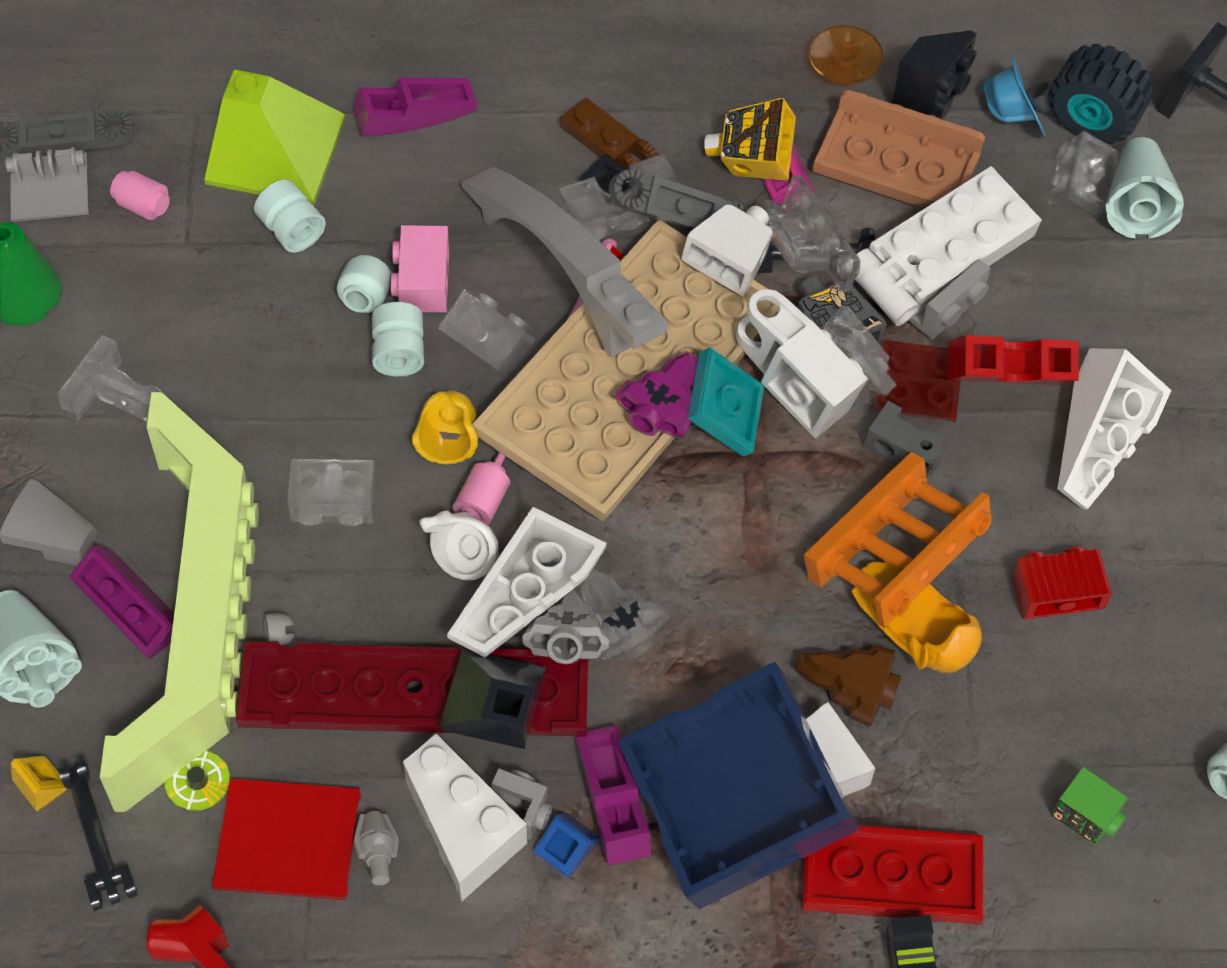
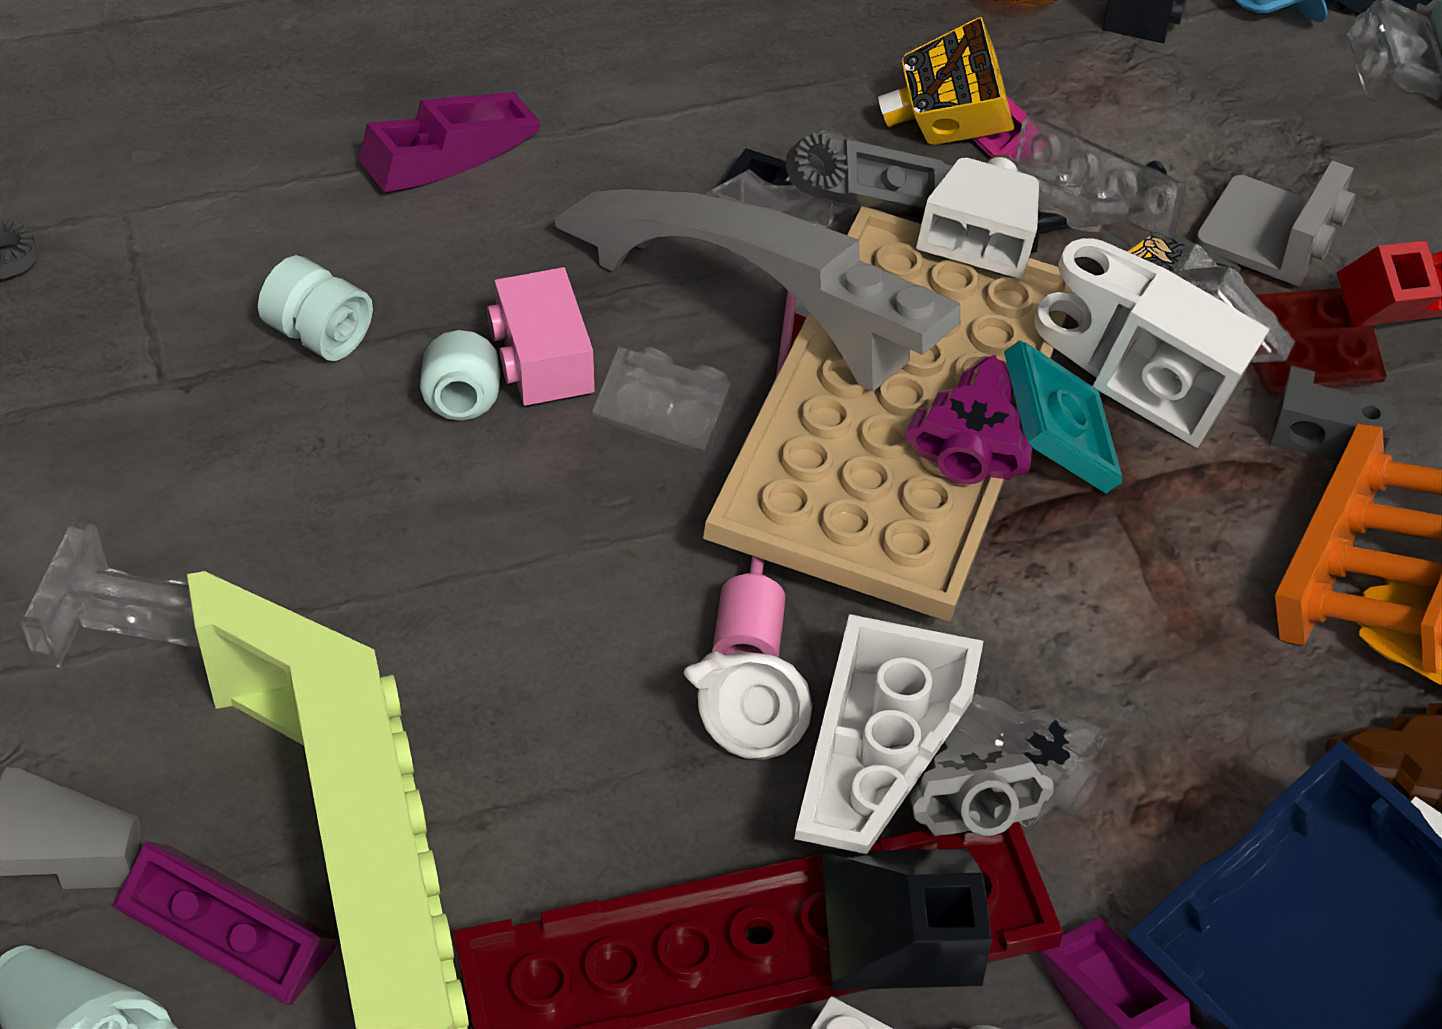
camera: 15 degrees left, 10 degrees down
(140, 194) = (72, 326): bright pink brick -> none
(271, 136) = (245, 209): lime slope -> none
(275, 628) = (491, 900): light grey hinge -> none
(332, 491) = (513, 672): clear brick -> none
(398, 339) = (539, 437): light aqua wheel -> none
(446, 413) = (662, 523): yellow hair -> none
(605, 134) = (732, 126): reddish brown hinge -> none
(897, 150) = (1148, 68): nougat bracket -> none
(943, 240) = (1269, 158): white hinge -> none

